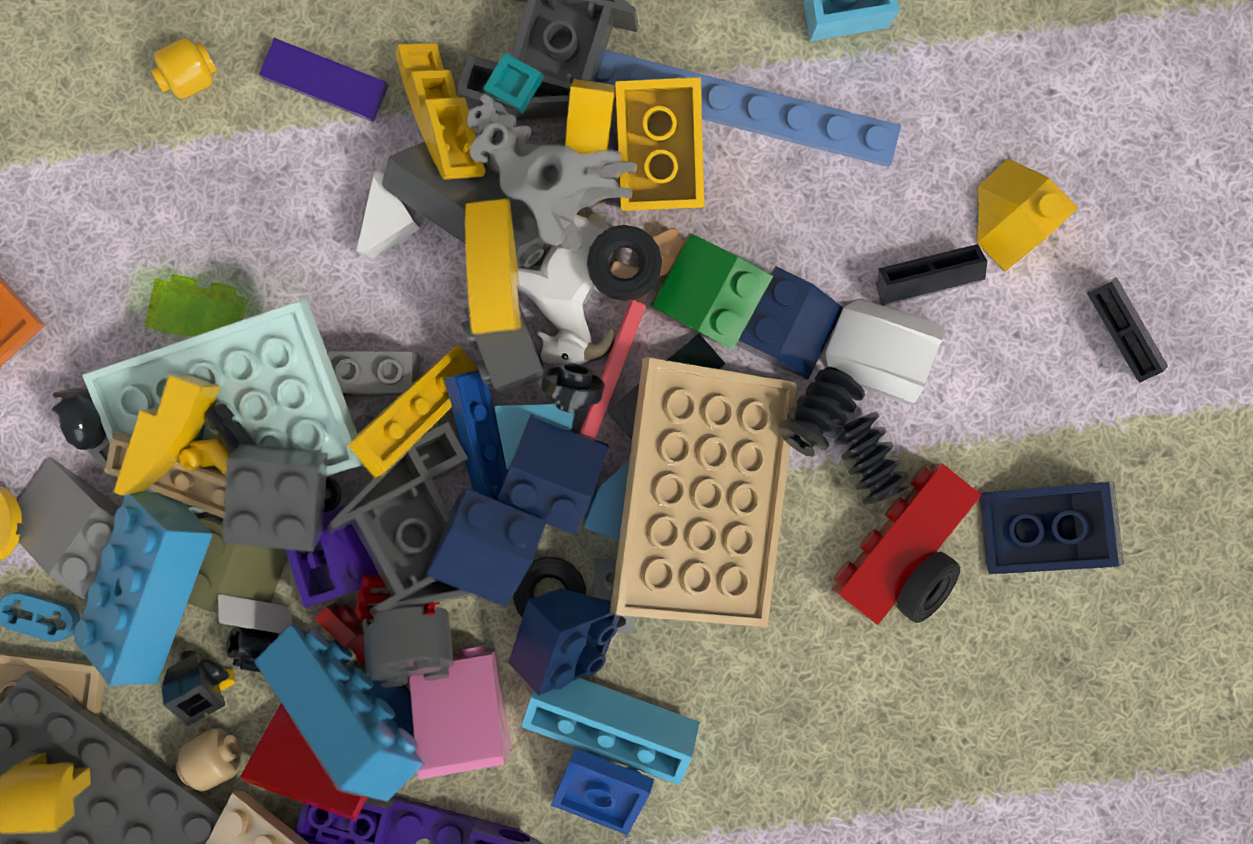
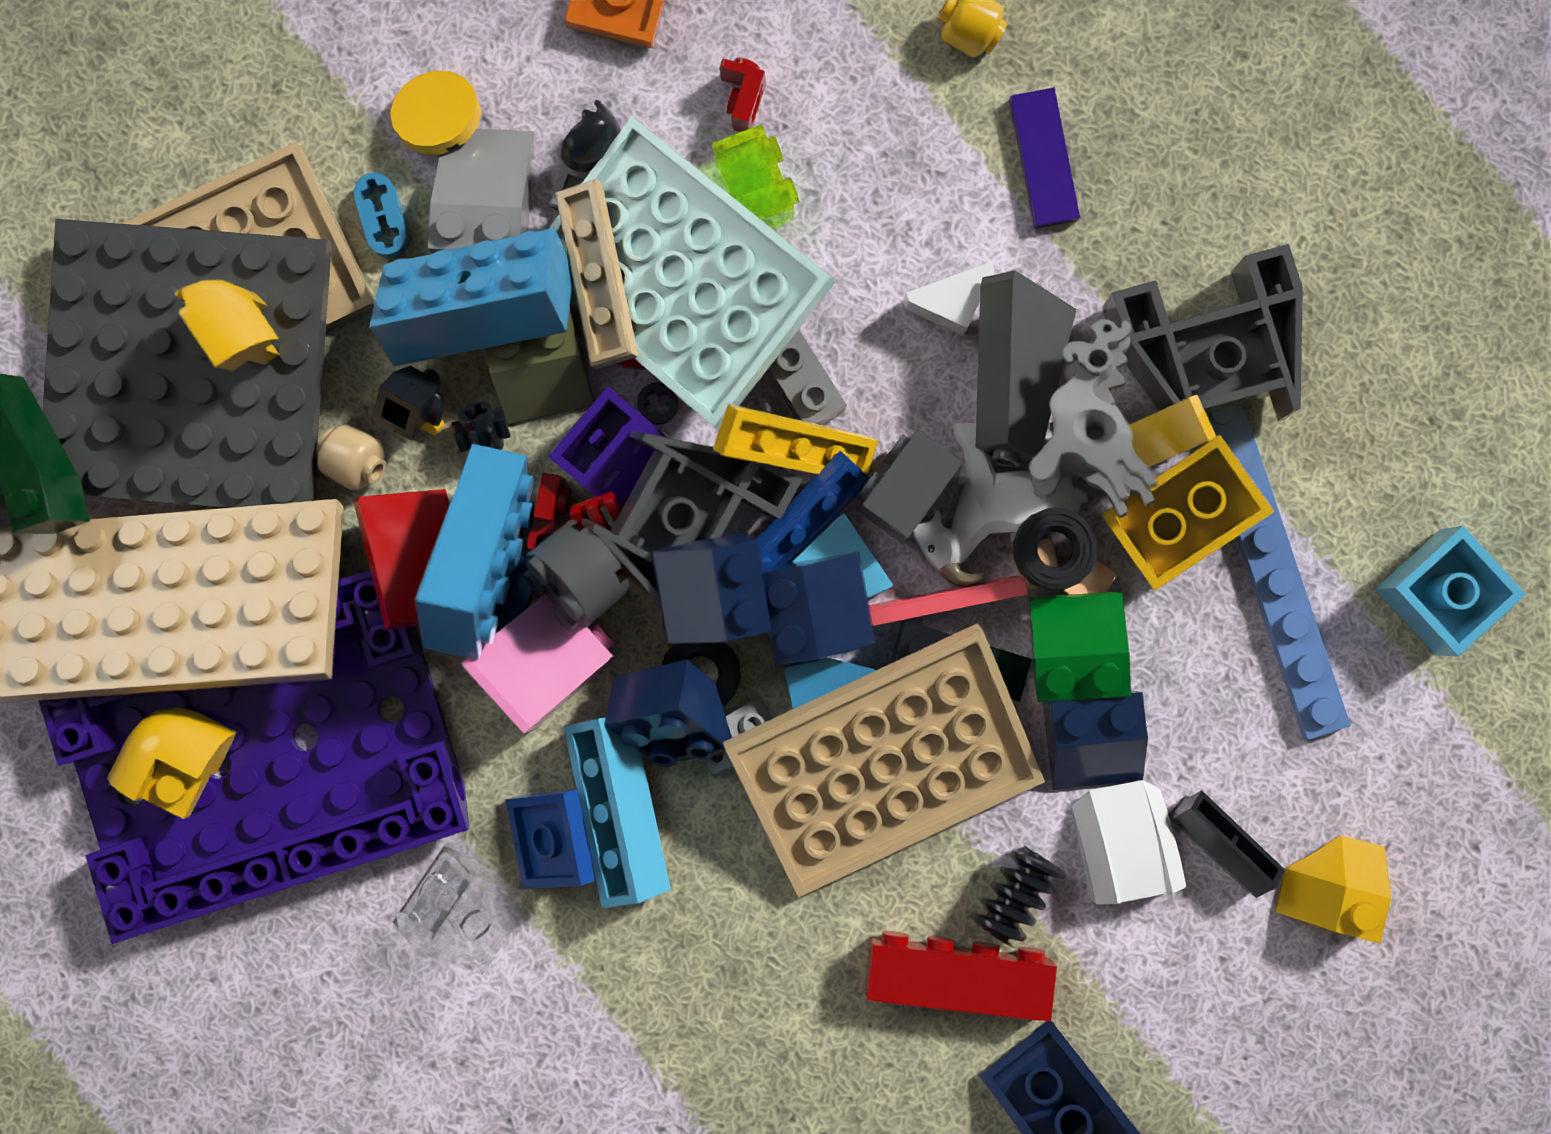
camera: 55 degrees right, 0 degrees up
(130, 277) = (743, 101): none -> red bracket
(165, 432) = (630, 230): yellow slope -> none
(204, 454) = (637, 284): yellow arm -> none
(230, 433) = (663, 299): black axle -> none
(253, 614) = (510, 413): white sticker -> none
(274, 497) = (635, 368): dark grey brick -> none
(438, 110) = (1085, 285): yellow slope -> none
(491, 267) = (974, 431): yellow slope -> none
(513, 83) = (1156, 340): teal plate -> none
(572, 387) = (908, 574): black plate -> none
(819, 409) = (1032, 820): black piece -> none
(928, 587) = (932, 1025): black tyre -> none
(1134, 325) = (1303, 1067): black piece -> none

